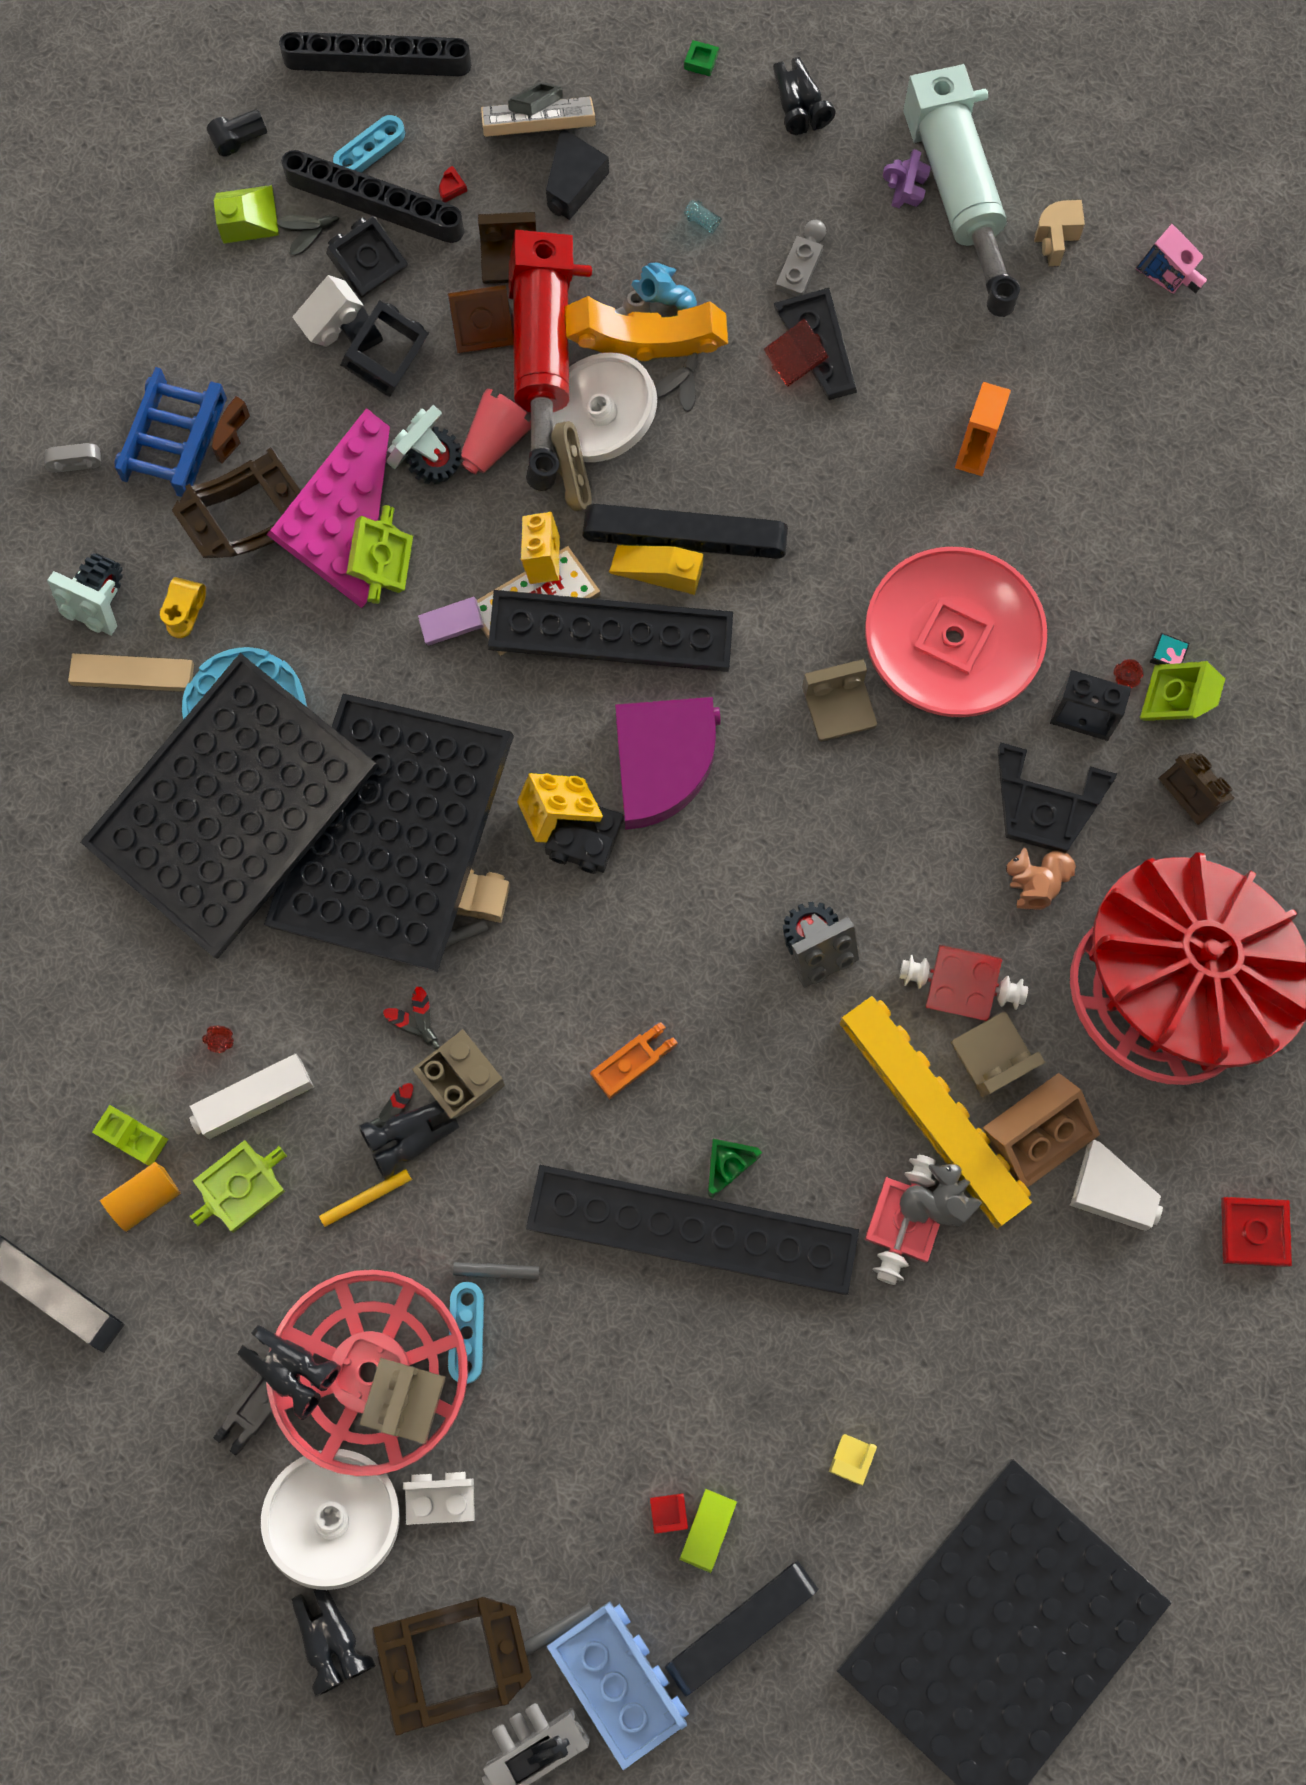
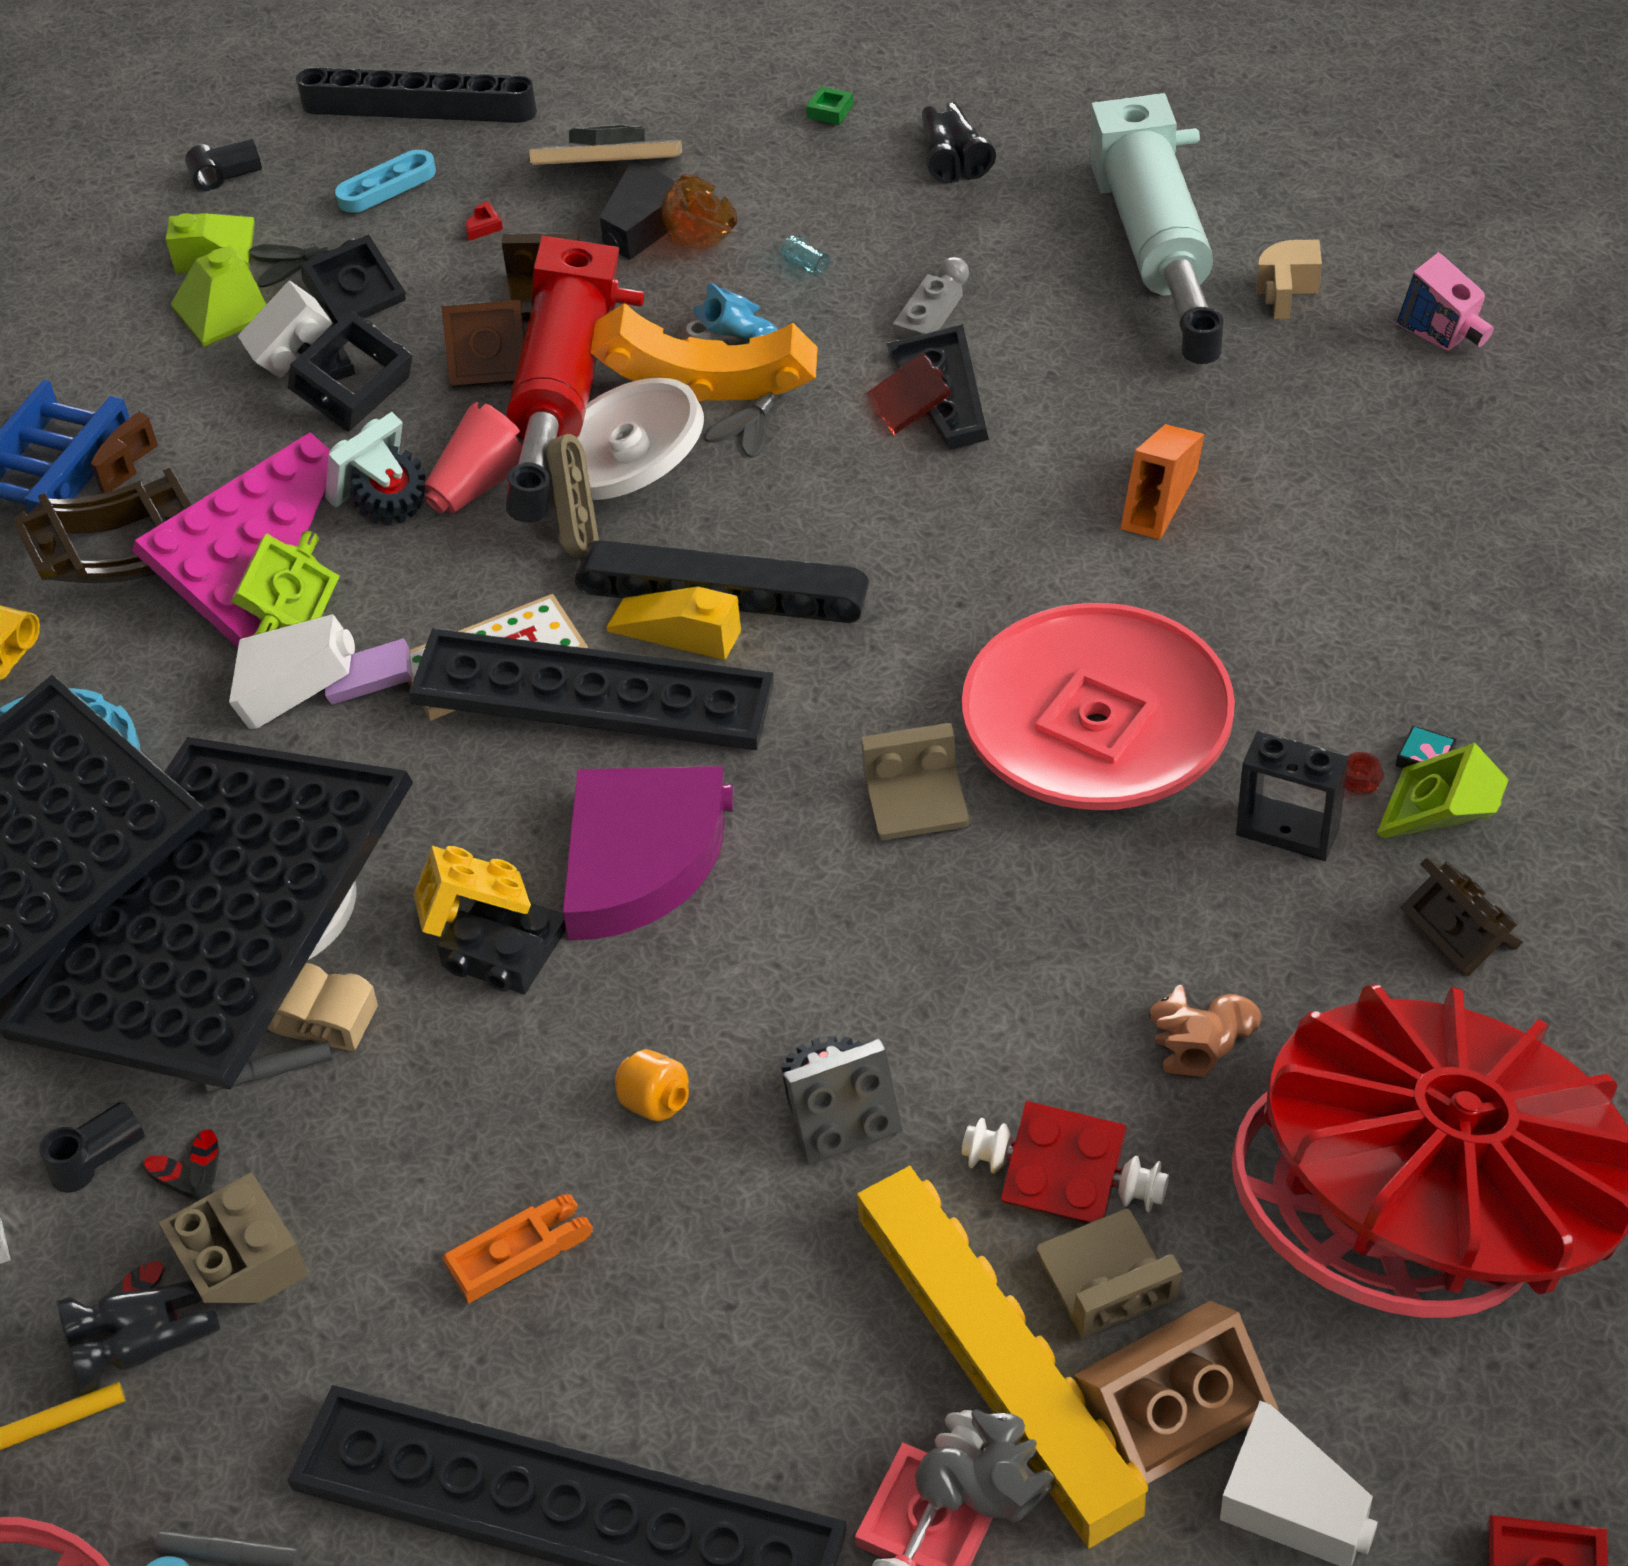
camera: 10 degrees right, 25 degrees down
(266, 274) = (218, 296): none -> lime slope
(332, 183) = (392, 228): black beam -> none
(351, 1004) = (76, 1152): none -> black piece
(396, 624) = (288, 667): none -> white slope
(540, 548) = (509, 585): yellow brick -> none
(619, 183) = (697, 215): none -> clear orange cylinder
(700, 942) = (652, 1085): none -> light orange head
(728, 1162) = (640, 1400): green slope -> none
(902, 177) = (1088, 224): medium lavender hips -> none
(1043, 813) = (1220, 945): black wing -> none

